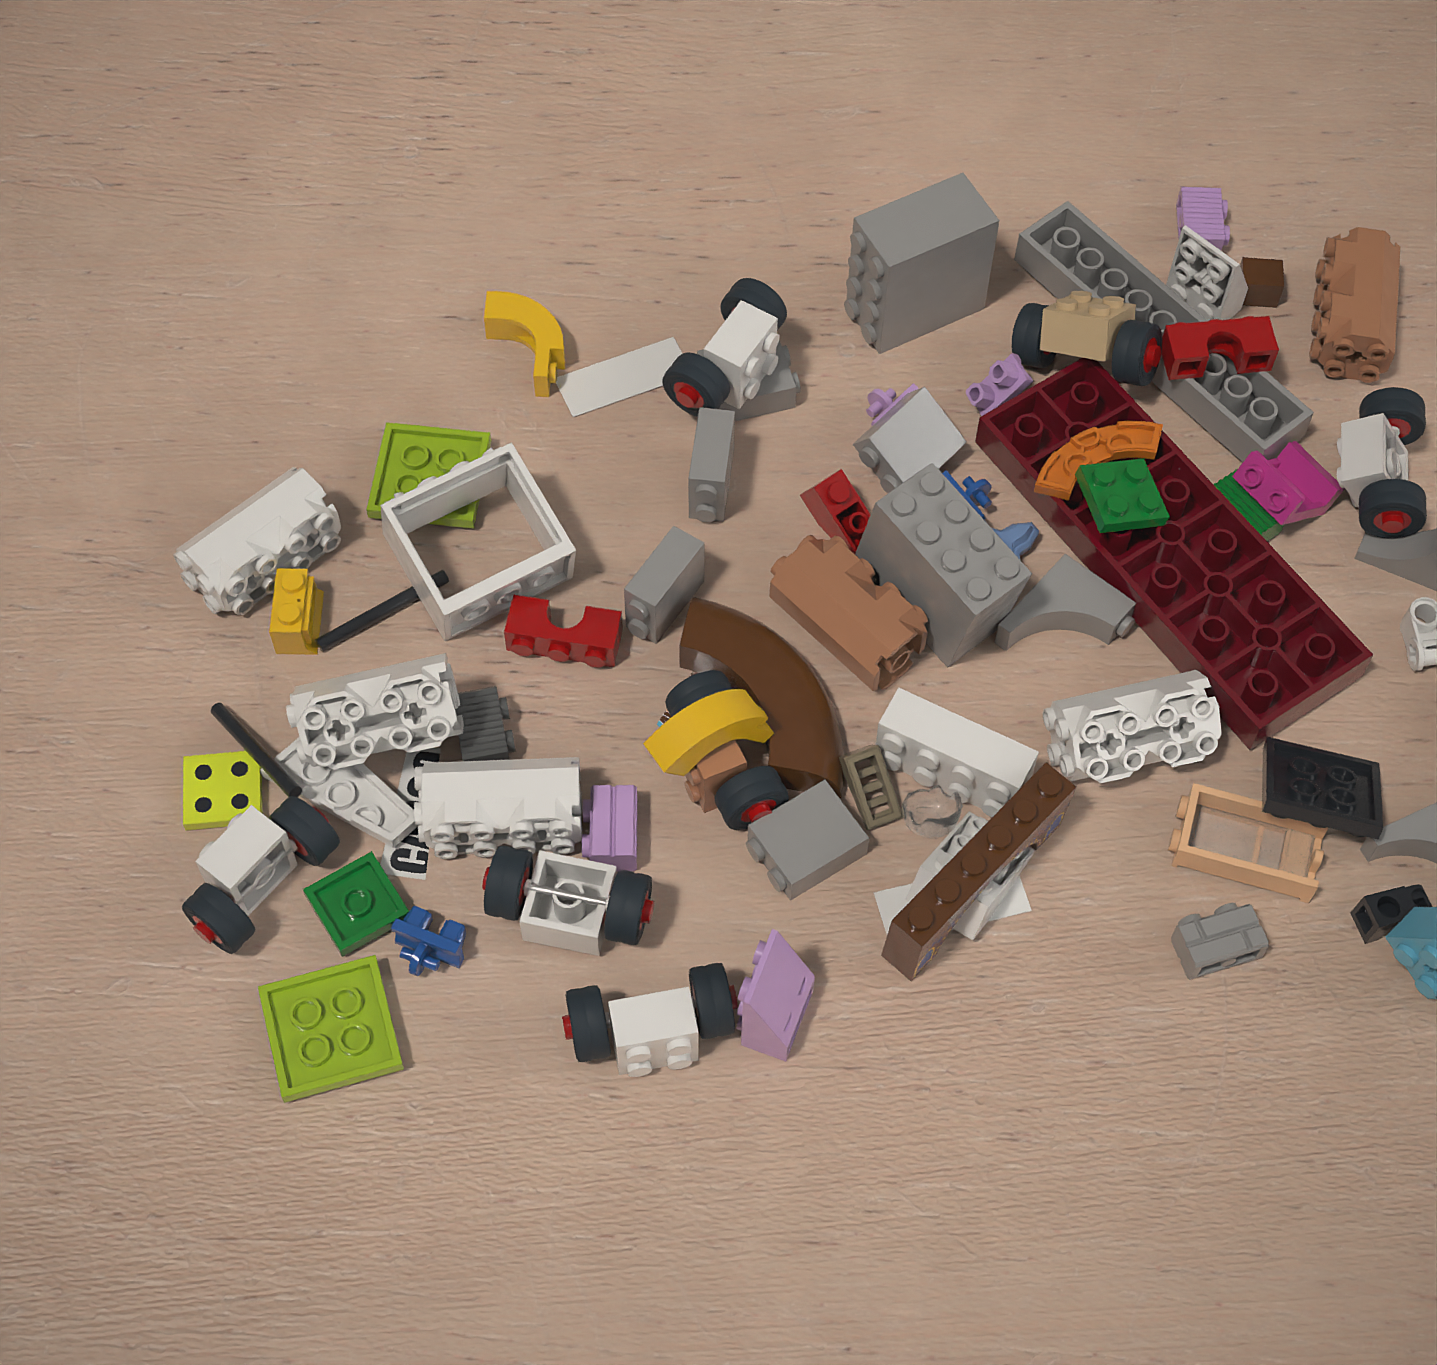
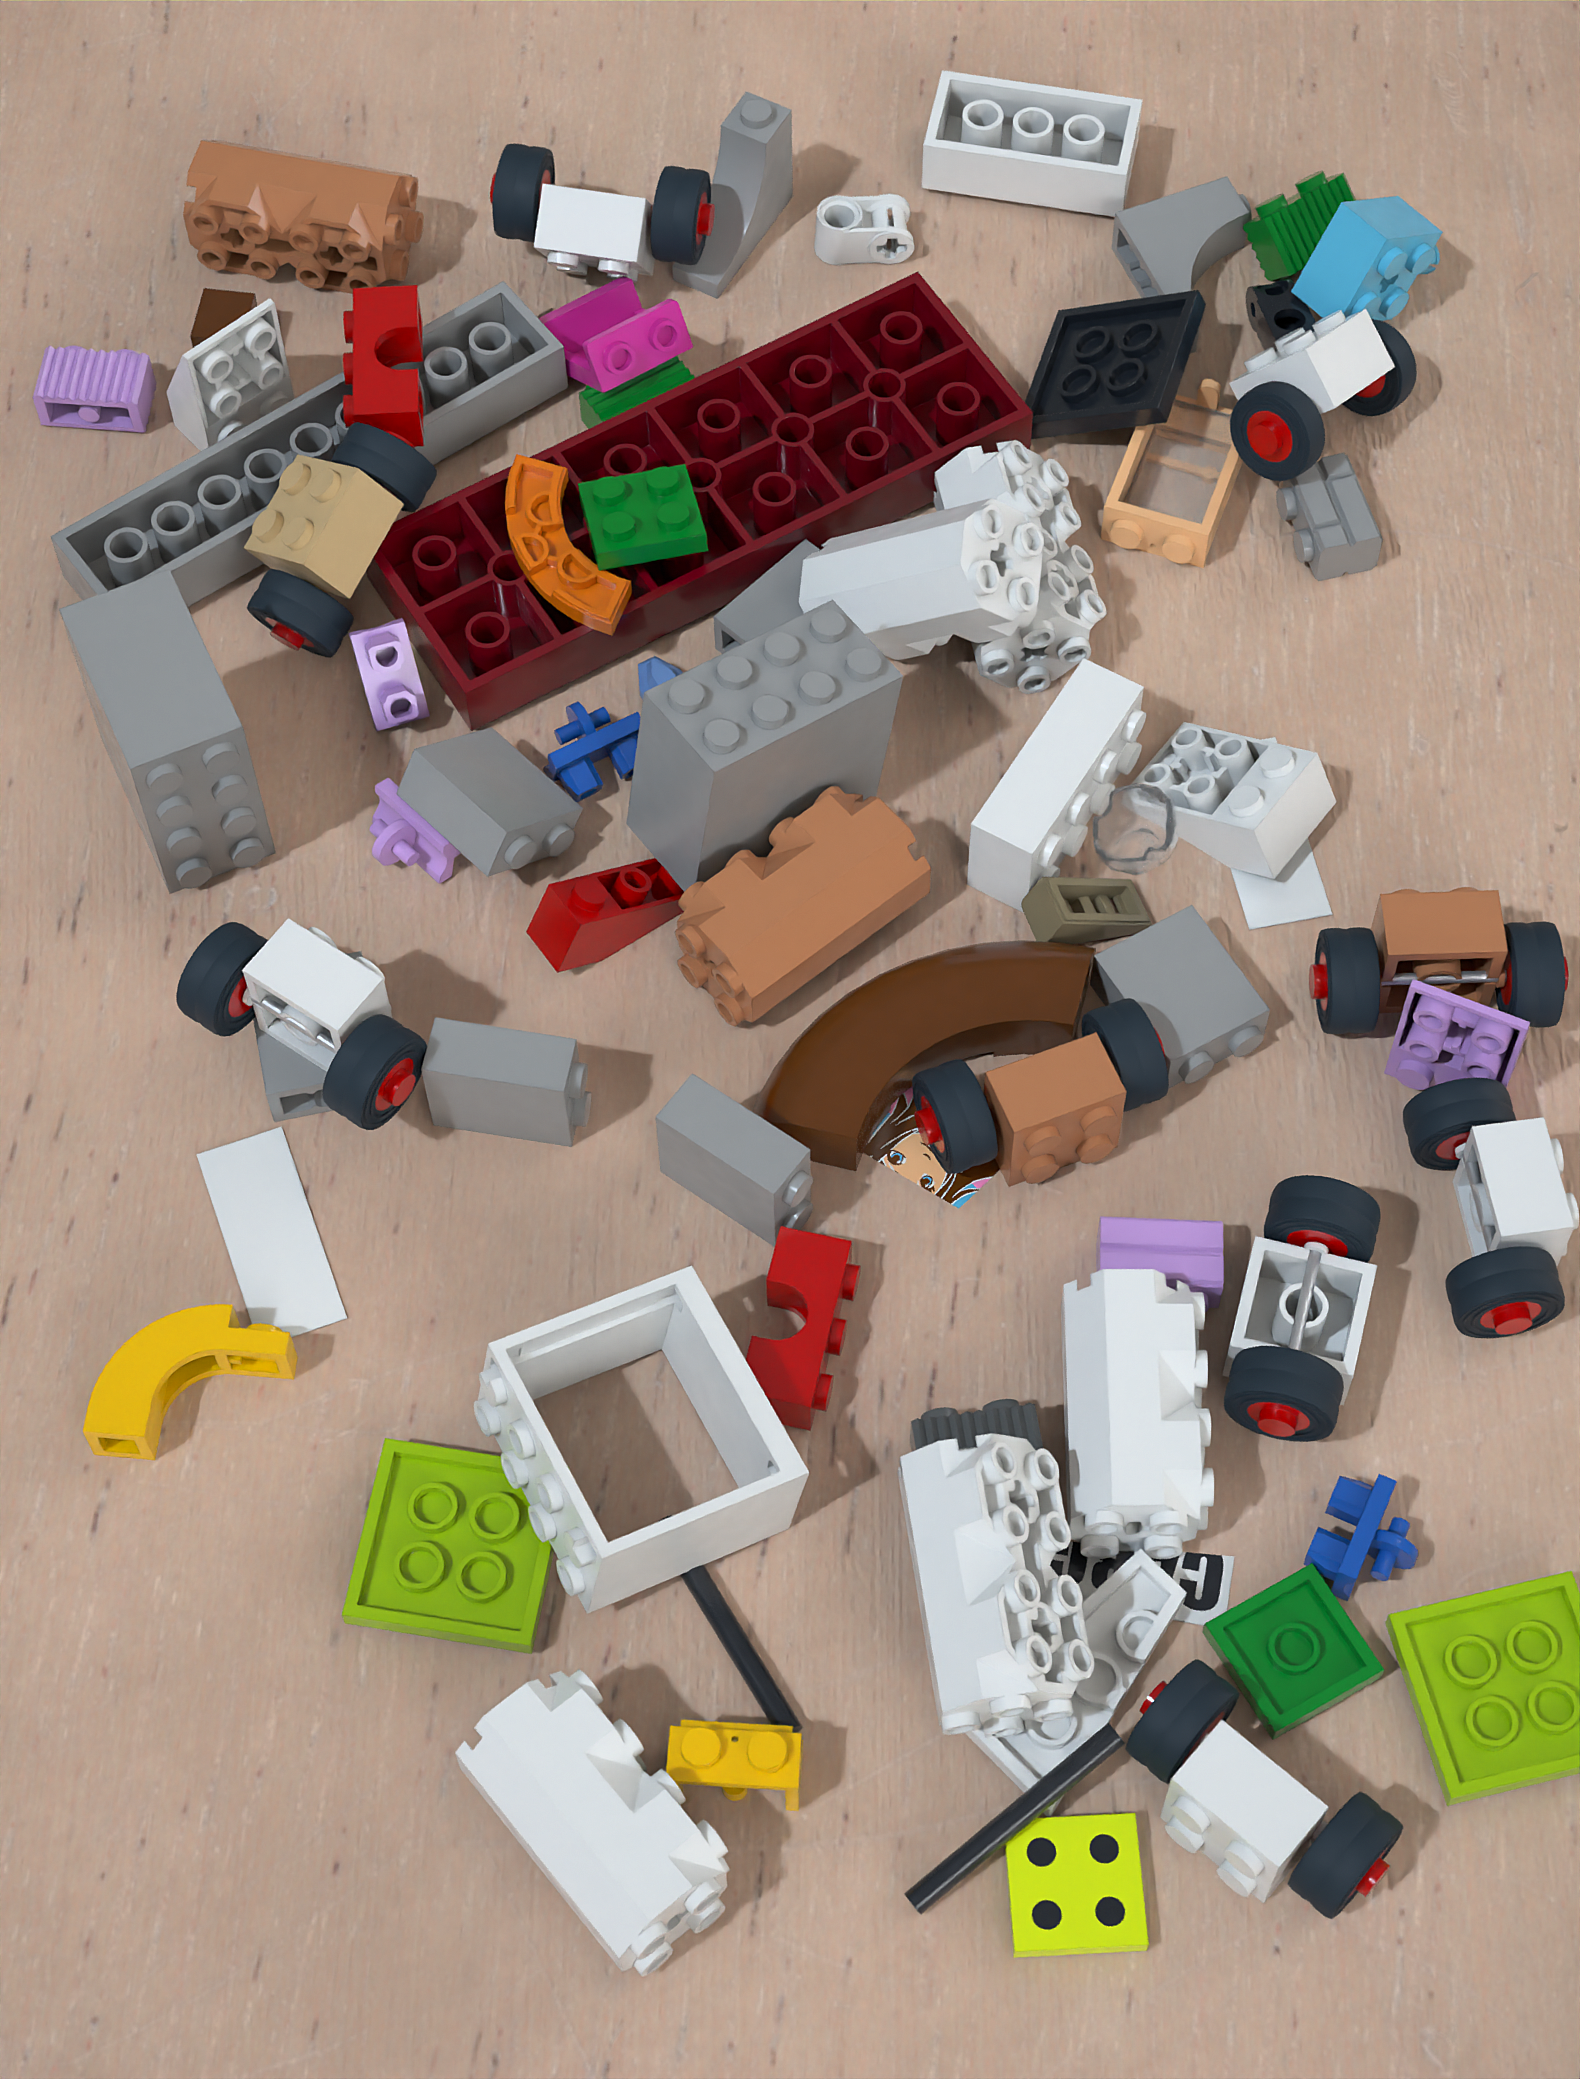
camera: 85 degrees left, 0 degrees up
(705, 726) = (1059, 1071): yellow arch -> none
(844, 990) = (1446, 942): none -> brick
(930, 916) = (1340, 817): reddish brown arch -> none
(1087, 654) = (932, 577): none -> white brick
(1321, 909) = (1285, 391): none -> brick

